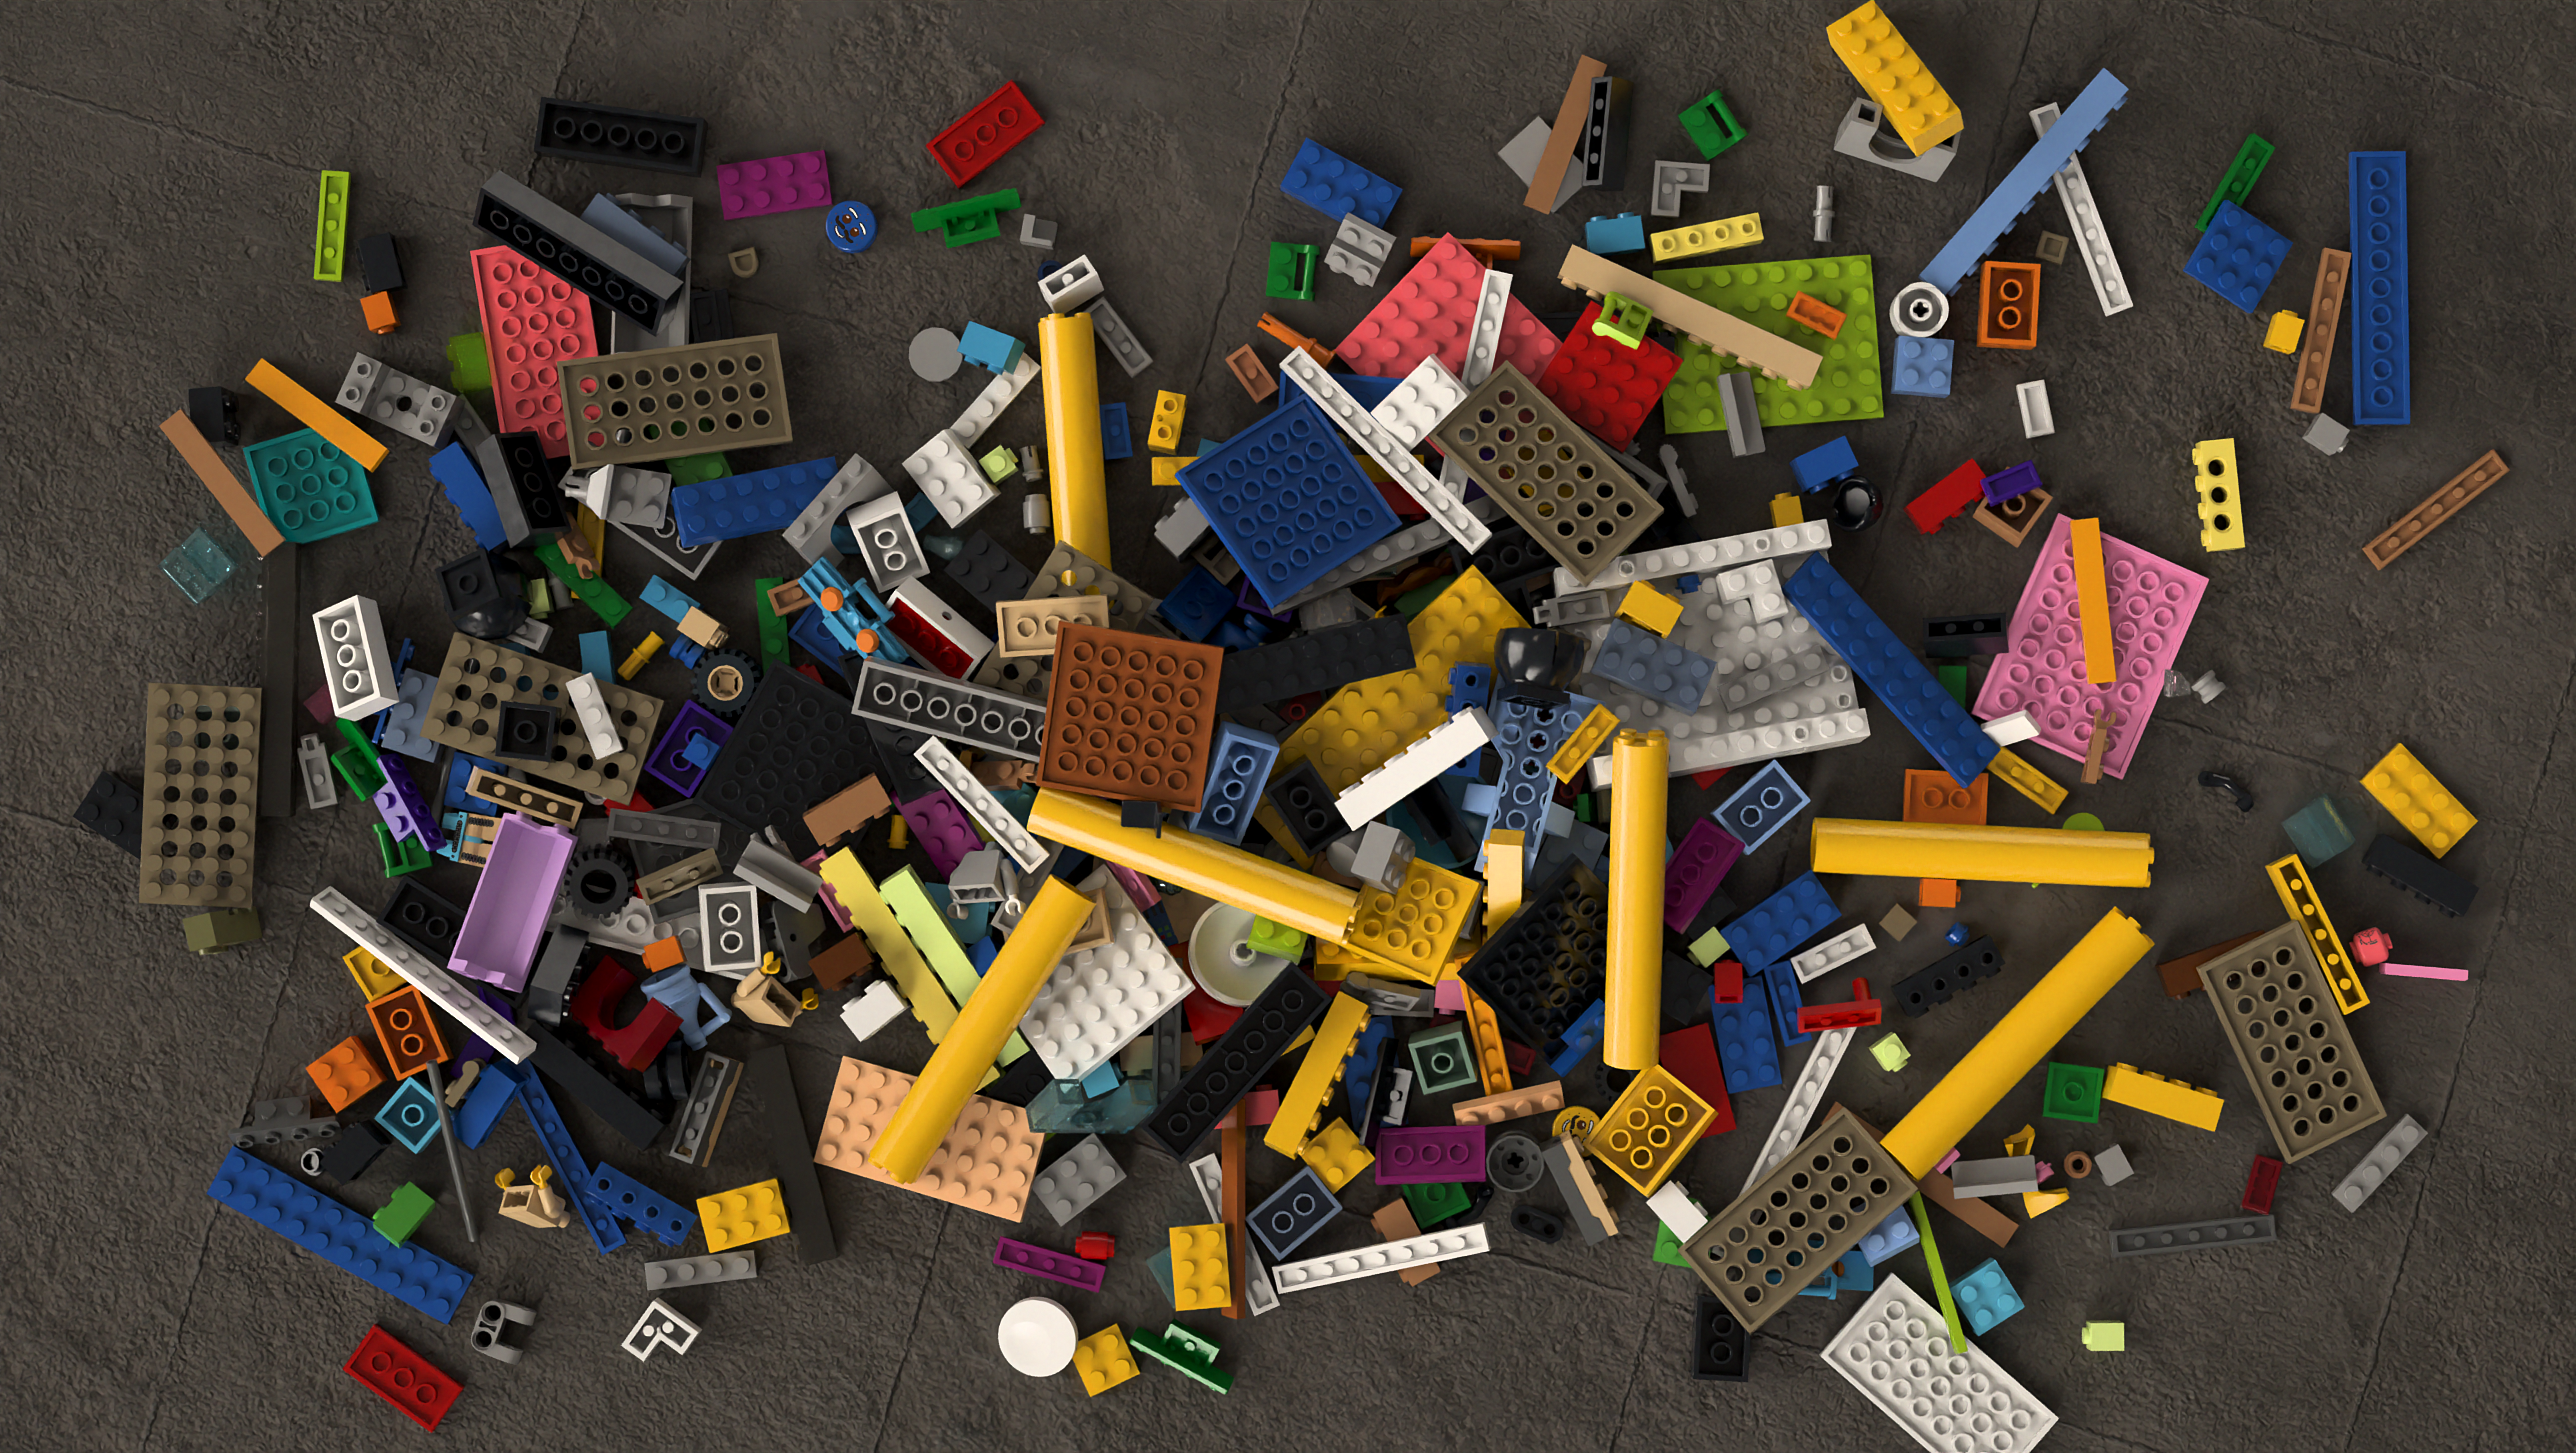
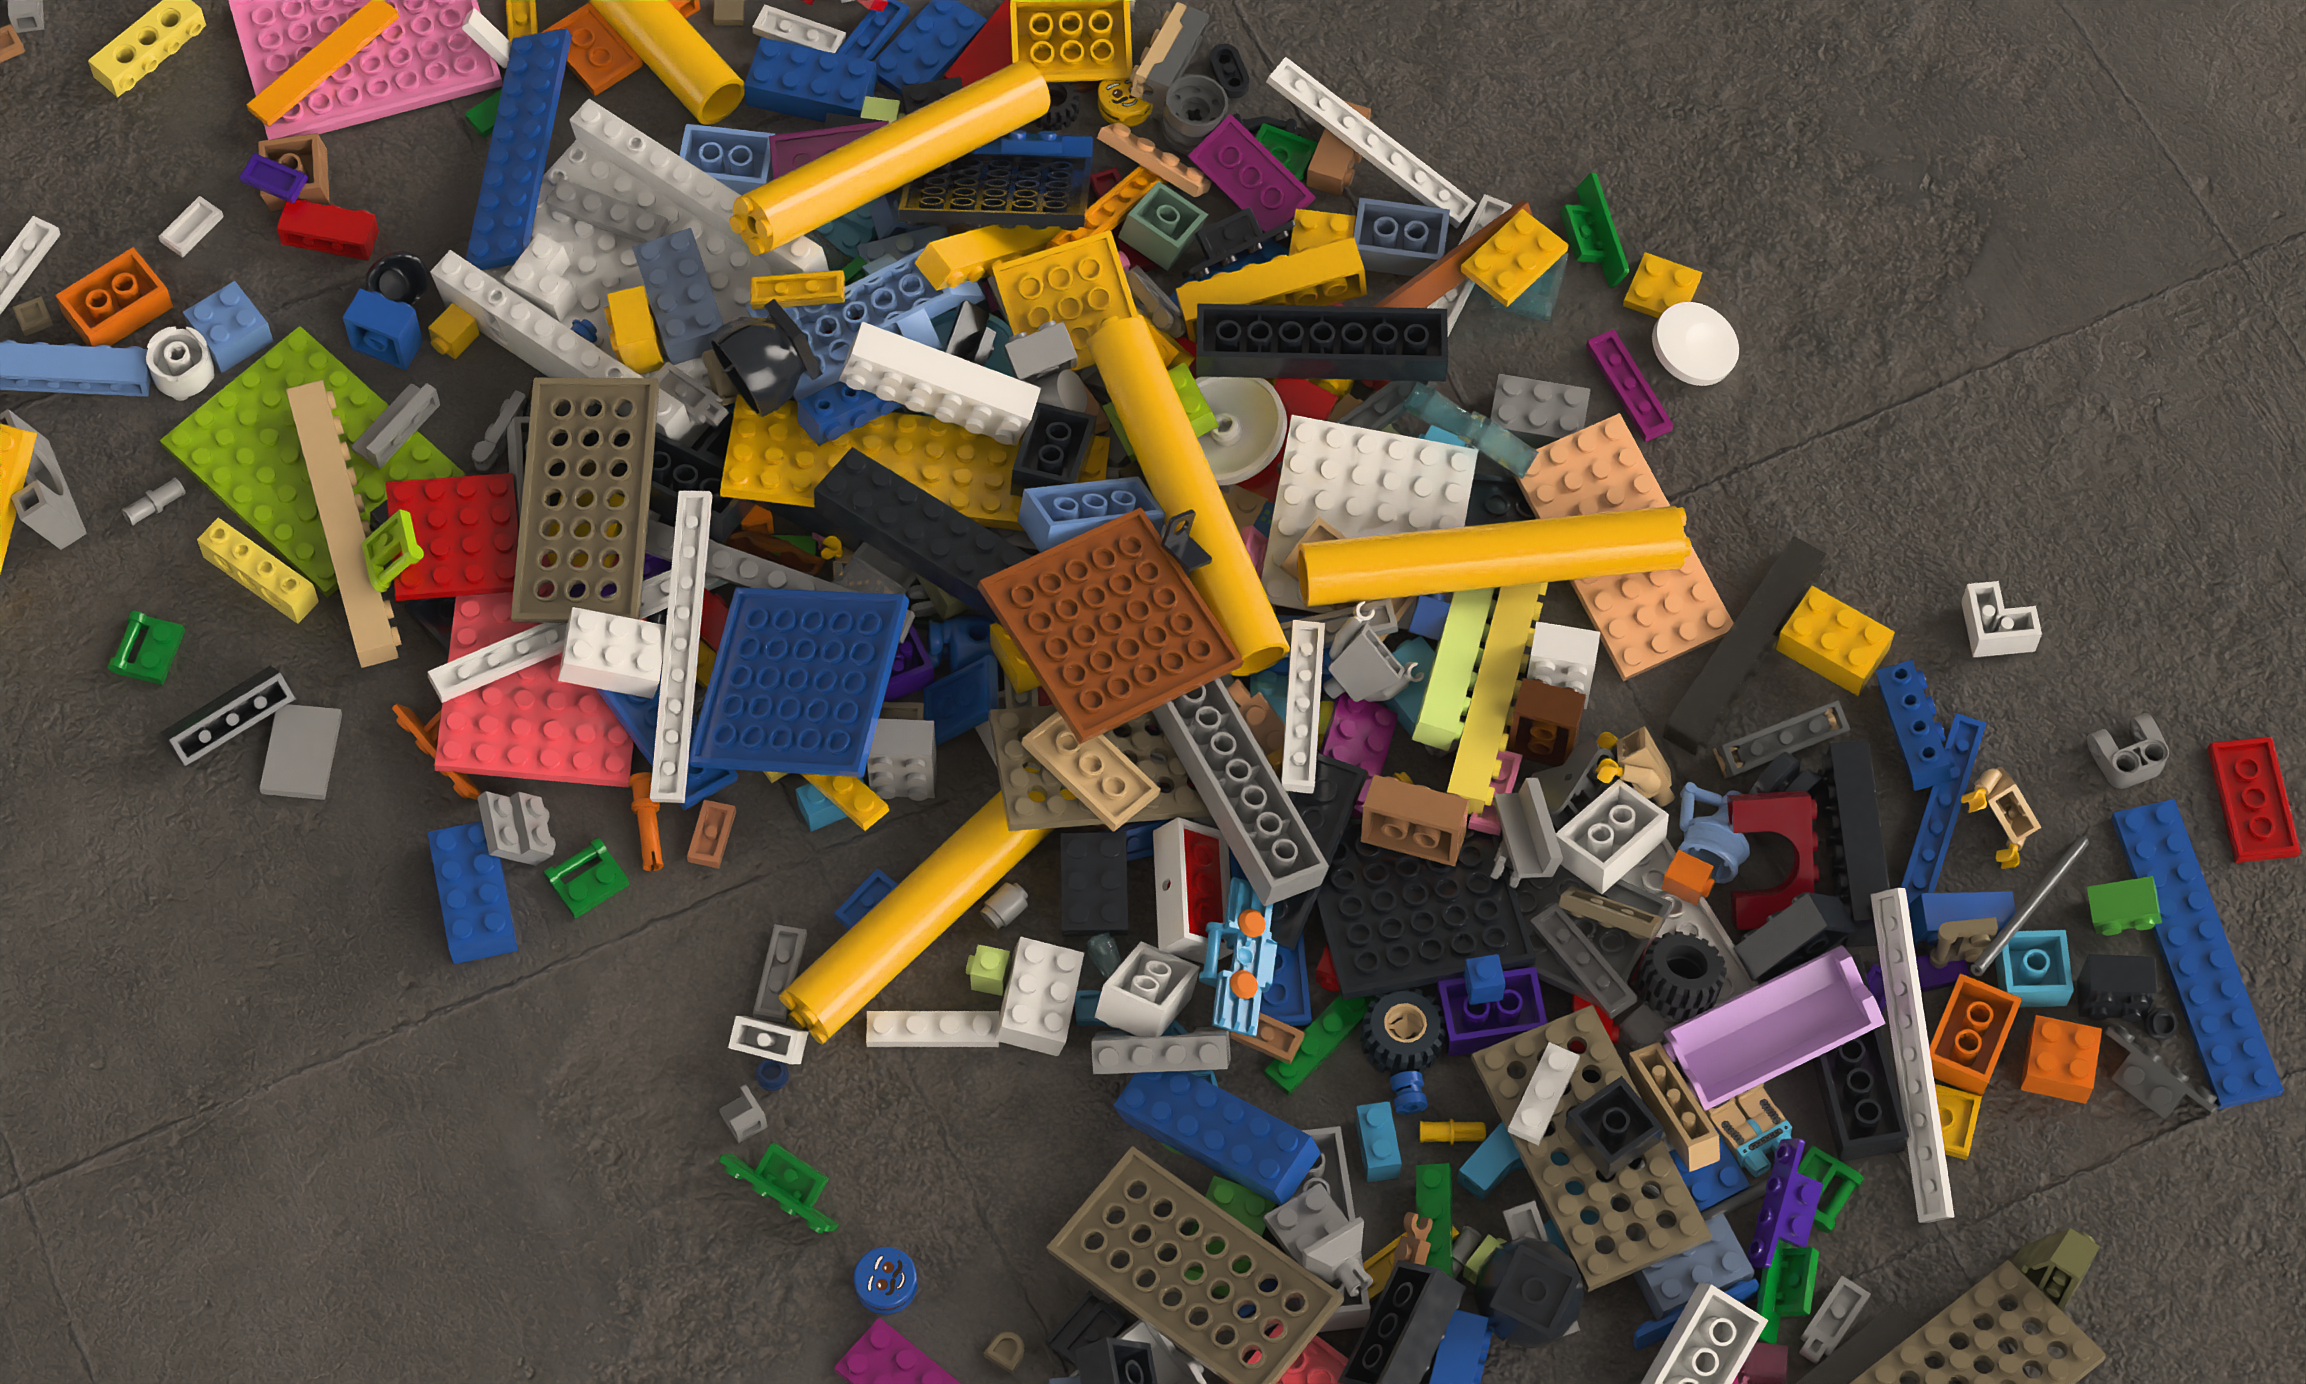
camera: 135 degrees left, 25 degrees down
(701, 1269) = (1920, 645): light grey plate -> none
(704, 629) = (1375, 1073): tan brick -> none
(935, 354) = (938, 1111): light grey tile -> none
(985, 134) = (690, 1240): red tile -> none
(990, 348) = (889, 1060): dark azure brick -> none
(1031, 464) = (963, 948): light grey pin -> none
(1095, 1245) = (1578, 363): red brick -> none
(1167, 422) = (807, 860): yellow window -> none
(1563, 136) = (258, 751): medium nougat tile -> none
(1615, 235) = (319, 643): dark azure brick -> none
(1670, 180) = (229, 640): light grey plate -> none
(1728, 982) = (893, 74): red brick -> none
(1816, 315) = (252, 431): orange plate -> none
(1966, 635) = (437, 122): black brick -> none

